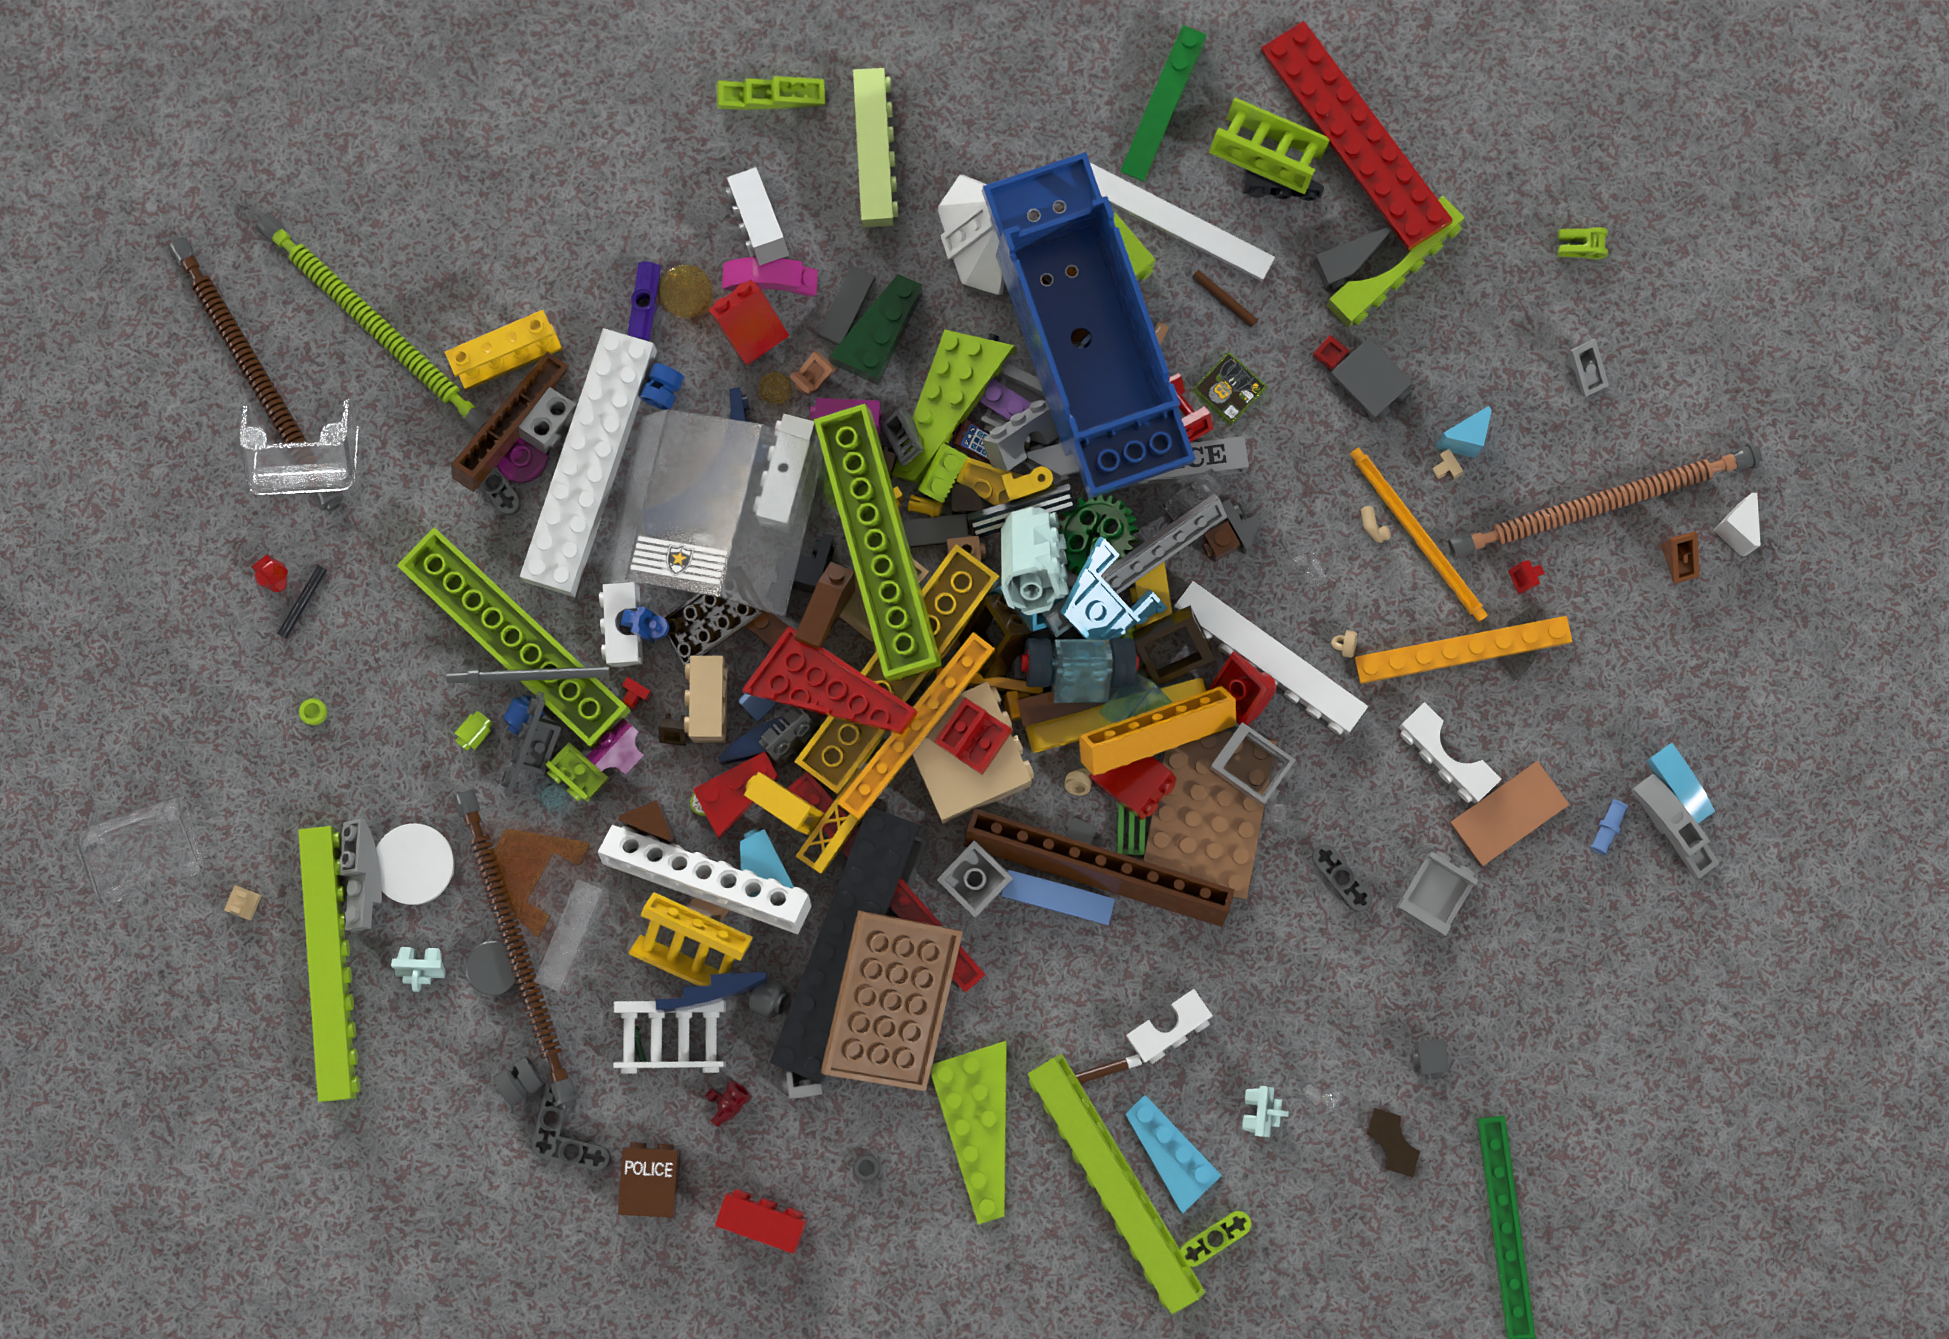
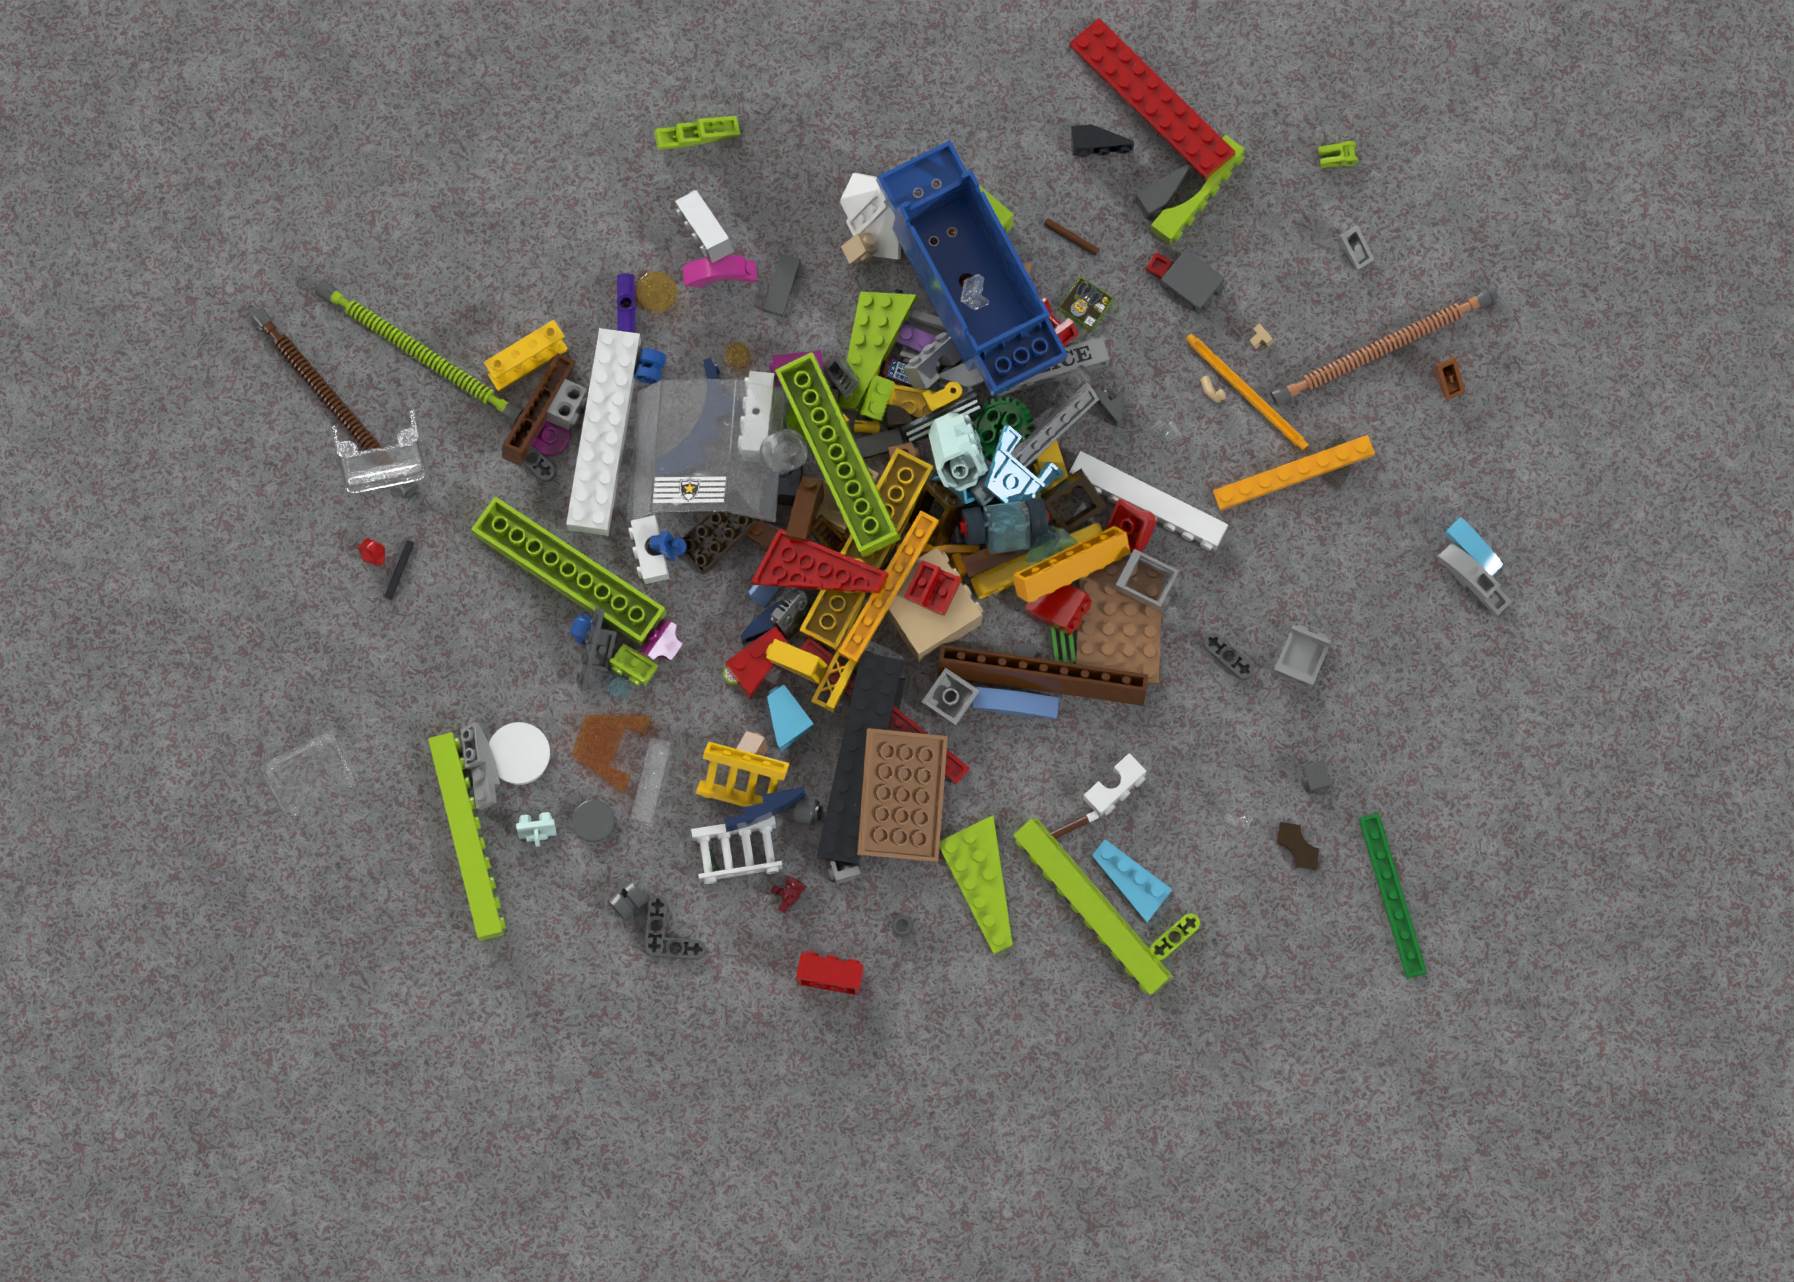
camera: 10 degrees left, 5 degrees down
(242, 902) = (392, 802): tan tile -> none
(313, 711) = (421, 651): lime tile -> none
(473, 731) = (548, 646): lime brick -> none
(475, 676) = (546, 602): dark grey bar -> none
(562, 1086) = (611, 804): reddish brown hose -> none
(635, 693) = (668, 598): red tile -> none
(649, 1180) = (739, 959): reddish brown brick -> none
(650, 820) = (696, 692): reddish brown slope -> none
(663, 872) = (753, 733): white brick -> none
(672, 731) = (701, 623): dark brown tile -> none
(706, 699) = (724, 594): tan brick -> none
(748, 322) = (710, 307): red brick -> none
(807, 528) = (783, 451): none -> clear brick
(813, 374) = (765, 339): nougat bracket -> none
(862, 654) = (839, 541): none -> reddish brown slope
(873, 147) = (783, 162): yellowish green brick -> none
(877, 334) = (808, 305): dark green wedge -> none
(952, 274) = (859, 248): none -> tan brick
(1078, 782) = (1017, 615): tan tile -> none
(1083, 358) = (972, 292): none -> clear bracket
(1164, 102) = (1001, 95): green slope -> none
(1183, 225) = (1033, 187): white tile -> none
(1220, 542) = (1096, 419): reddish brown brick -> none
(1261, 1123) = (1198, 836): light aqua hips -> none
(1262, 160) = (1084, 128): lime fence -> none
(1349, 644) = (1207, 481): tan tile -> none
(1424, 731) = (1315, 567): white arch -> none
(1468, 436) = (1270, 312): medium azure slope -> none
(1509, 813) = (1347, 589): nougat tile -> none
(1525, 576) = (1332, 410): red tile -> none
(1609, 827) = (1424, 588): medium blue pin -> none
(1741, 526) = (1488, 348): white slope -> none

